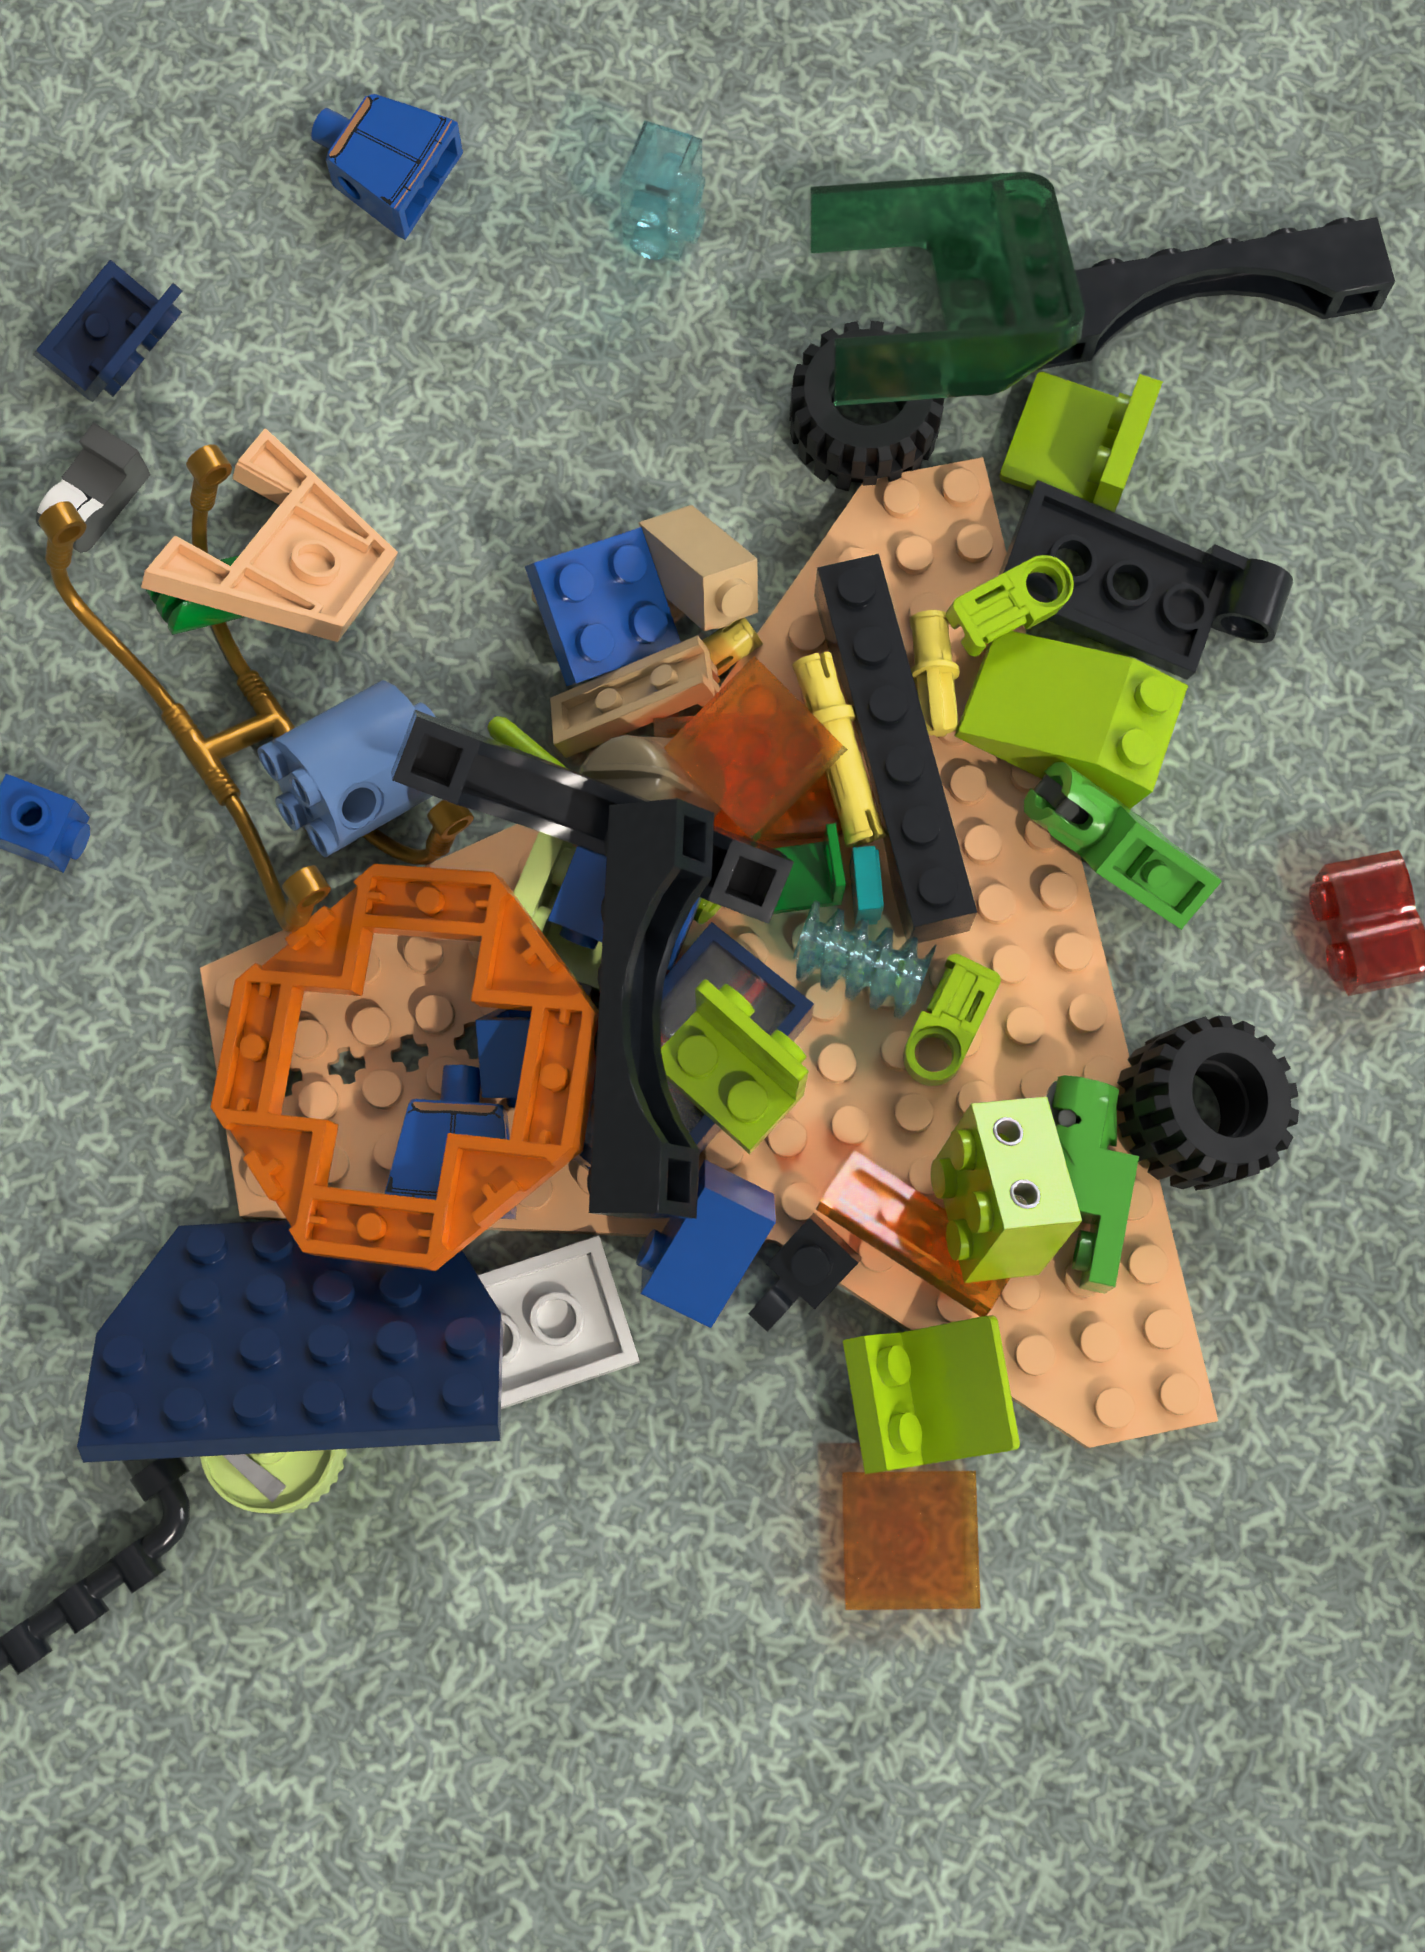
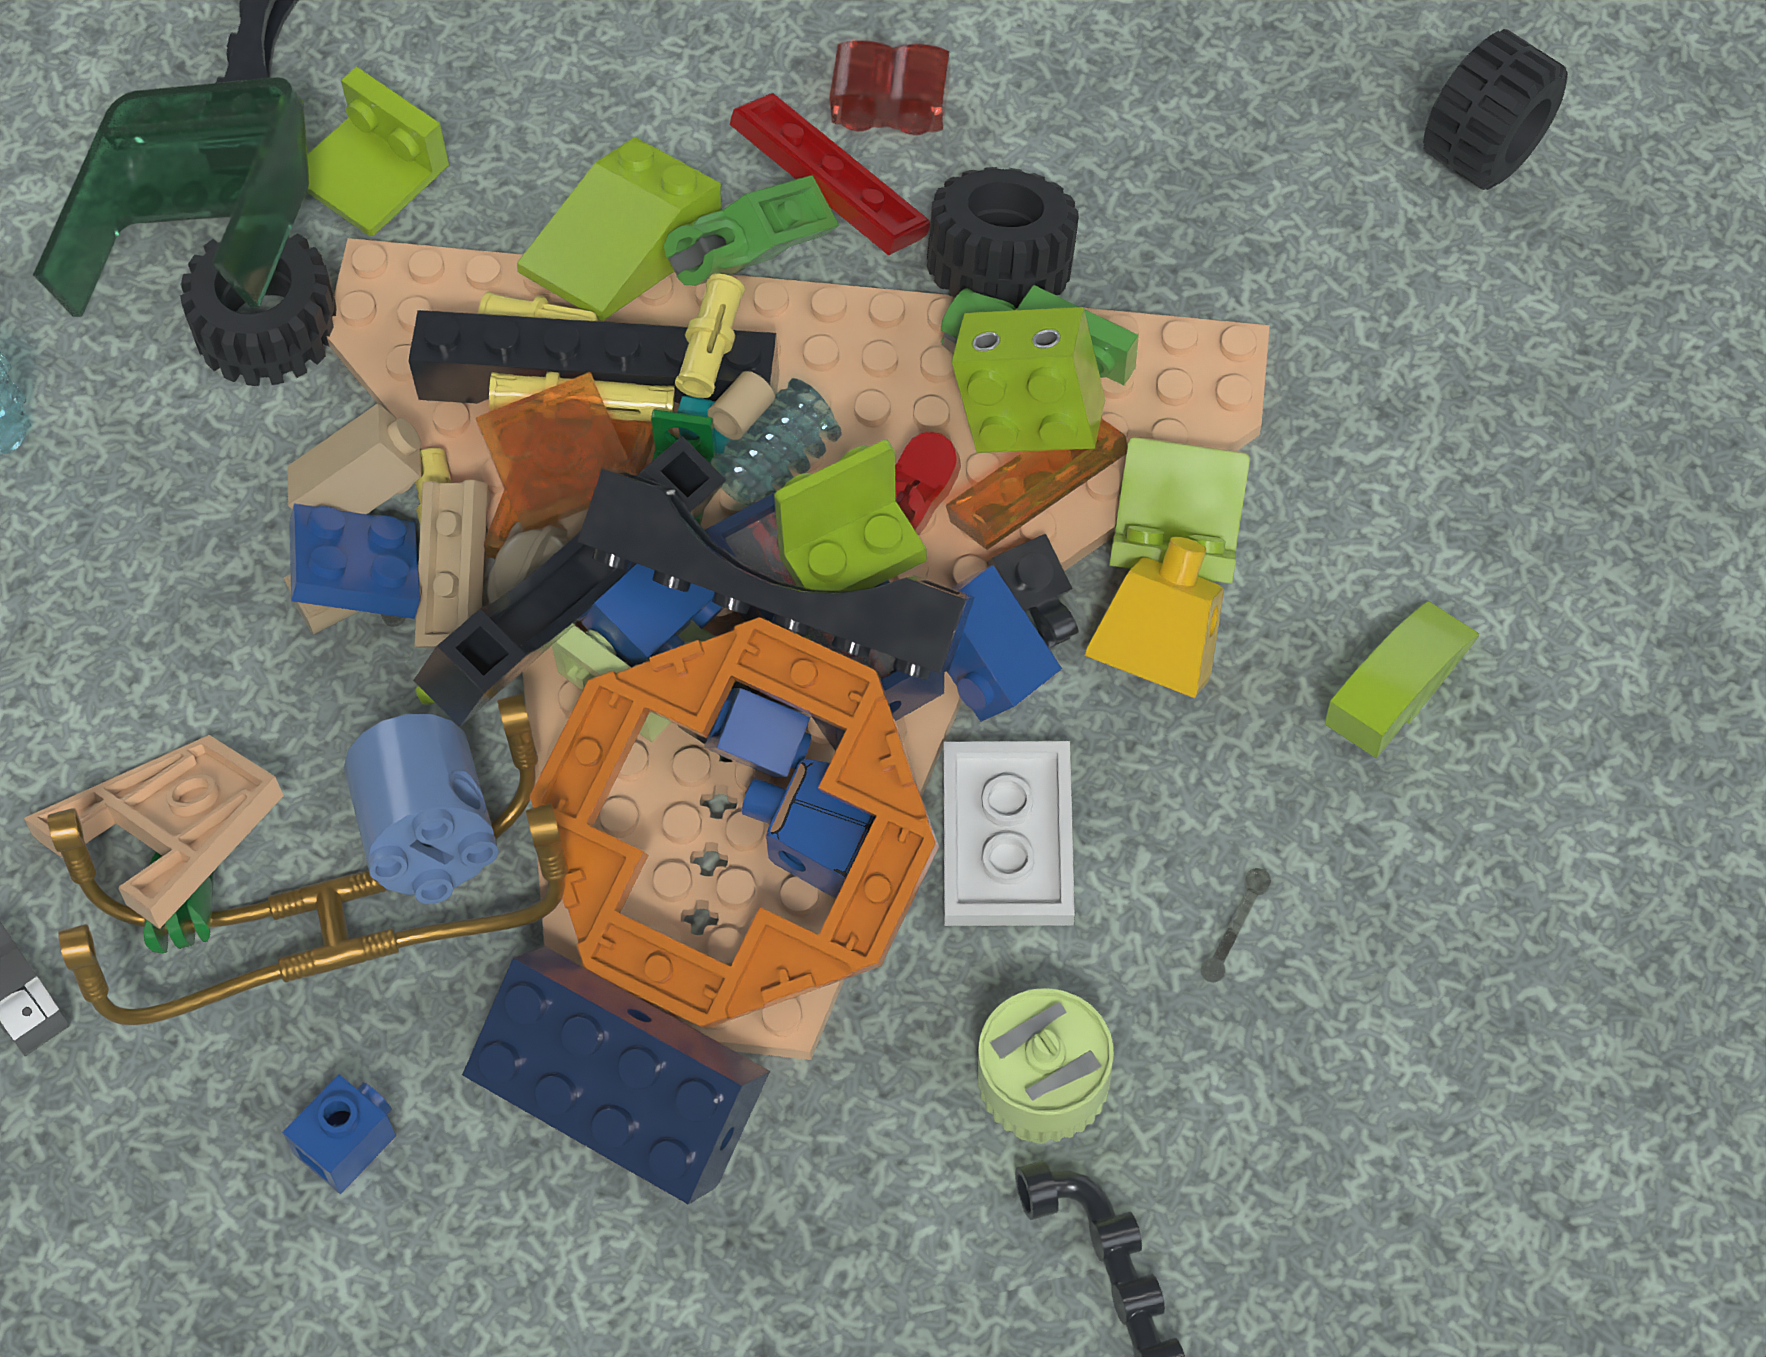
camera: 70 degrees left, 15 degrees down
(142, 1045) = (615, 1073): none -> dark blue brick
(278, 1350) = (951, 1041): dark blue plate -> none
(556, 1594) = (1256, 883): none -> clear smoke hinge
(793, 1416) = (1163, 621): none -> yellow torso
(832, 1684) = (1399, 678): none -> lime slope
(872, 907) = (741, 405): none -> tan hinge
(892, 849) = (710, 336): none -> light yellow pin
(898, 1118) = (934, 467): none -> red piece
(910, 1540) = (1297, 581): clear orange plate -> none
(954, 1017) = (856, 399): lime piece -> none
(1006, 603) = (504, 242): lime piece -> none
(1180, 586) = (540, 128): black hinge -> none
(1241, 905) = (843, 181): none -> red tile

